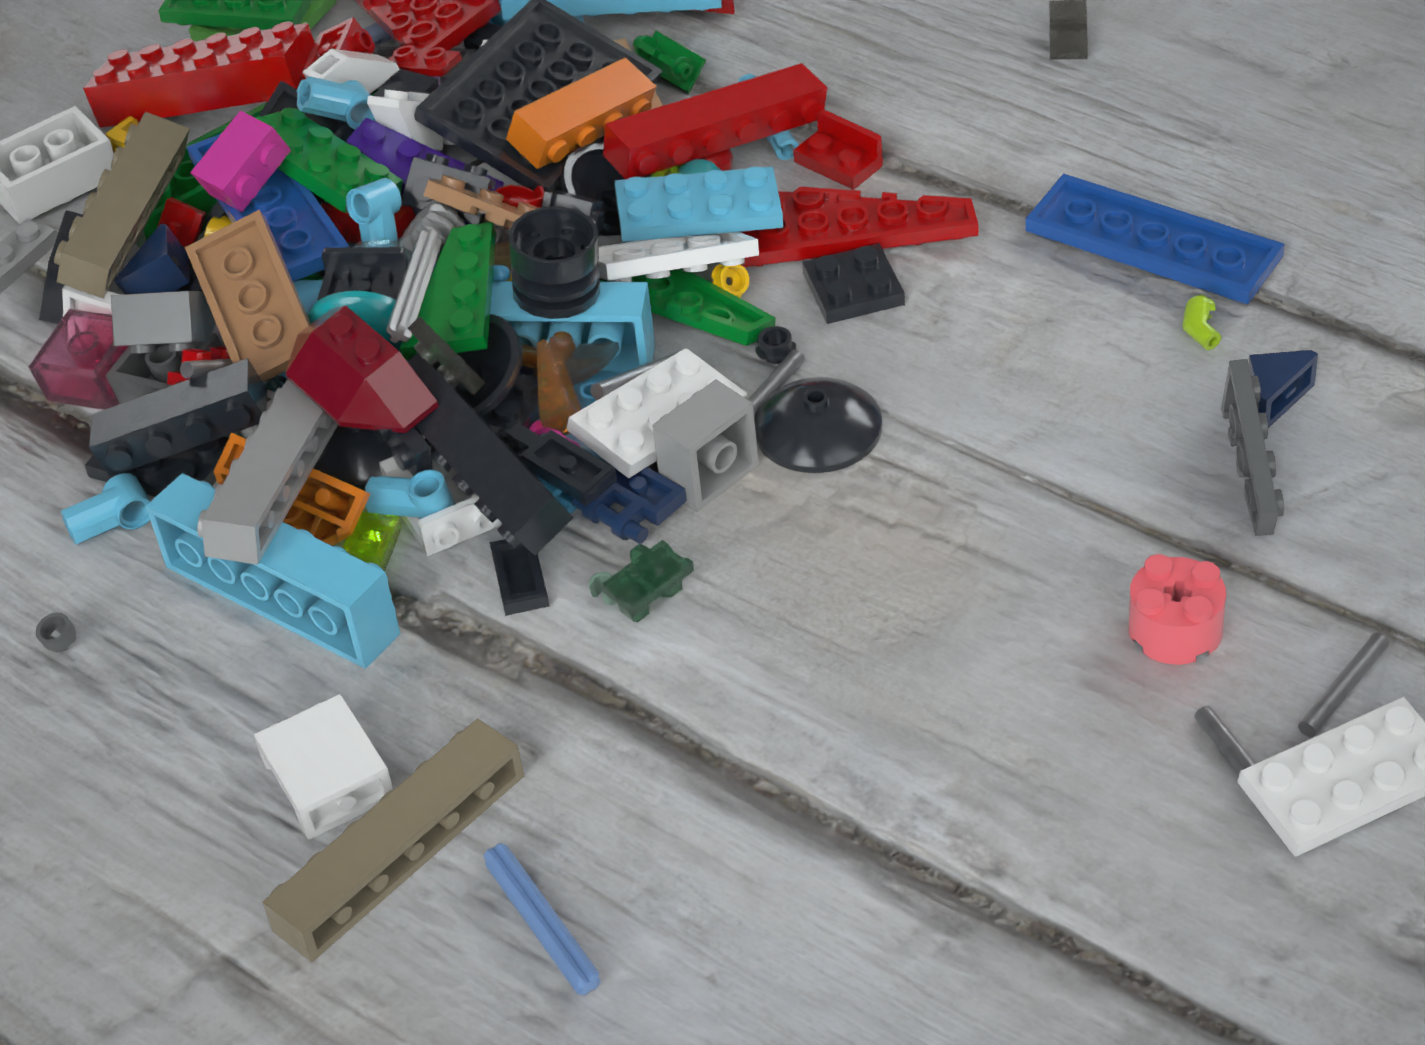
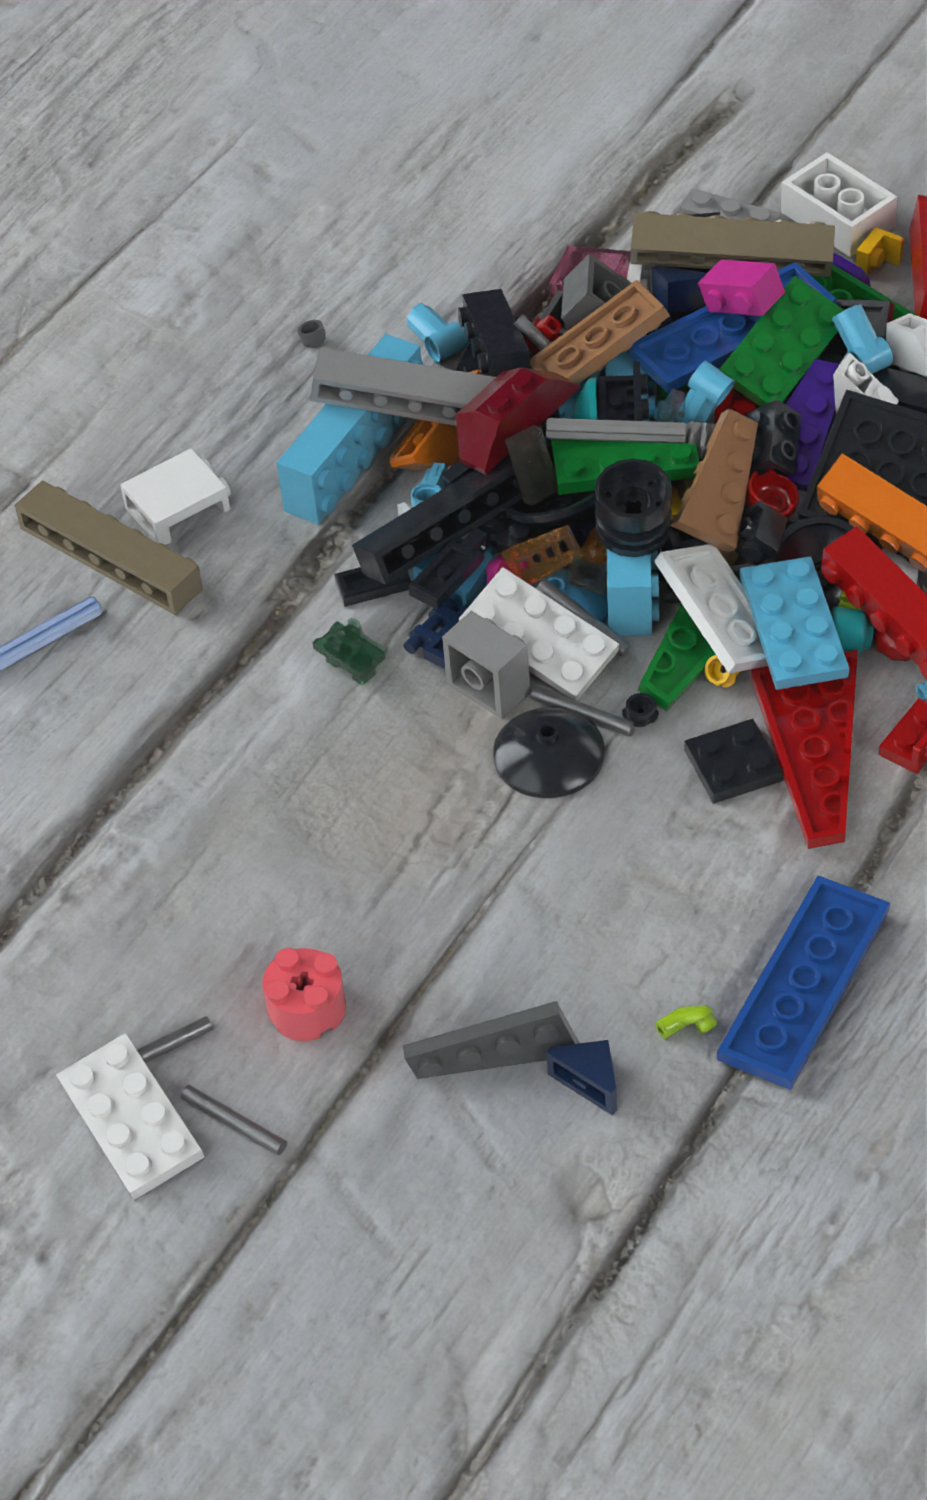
camera: 85 degrees right, 5 degrees up
(374, 538) = (386, 485): clear neon green plate -> none

